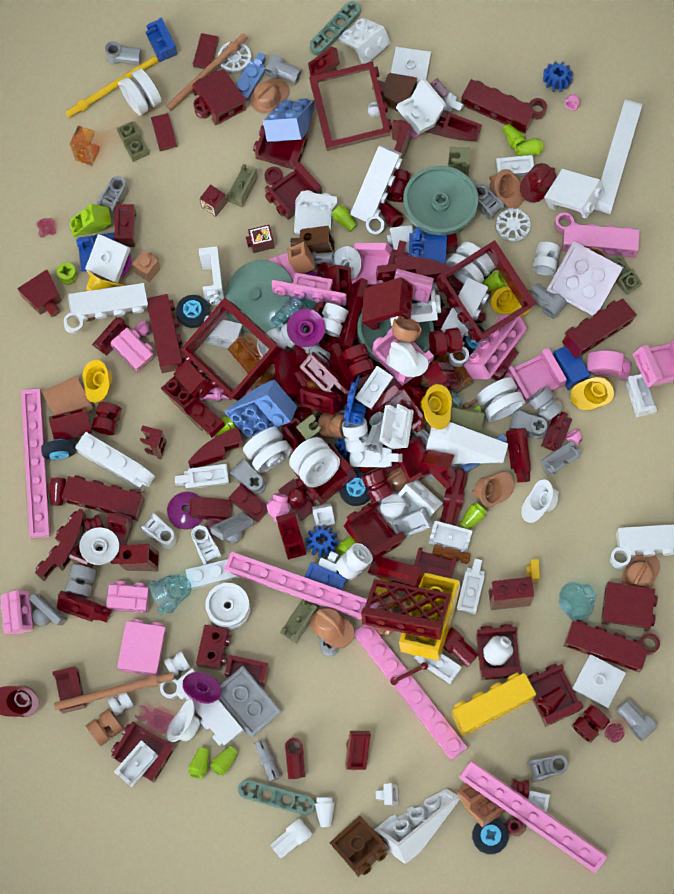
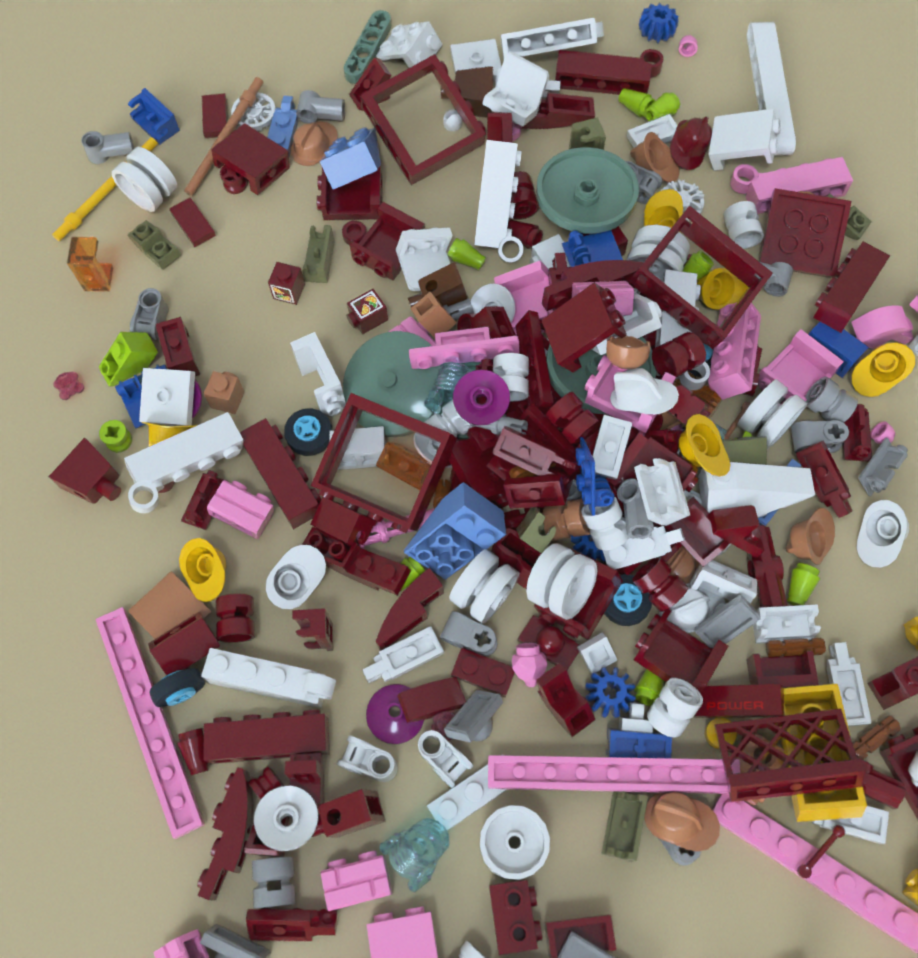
camera: 20 degrees left, 5 degrees down
(142, 328) = (246, 476): bright pink hinge -> none
(152, 404) = (295, 576): none -> white piece
(469, 67) = (552, 37): none -> white hinge
(474, 623) = (876, 737): none -> dark orange axle
(492, 229) = (663, 208): none -> yellow piece

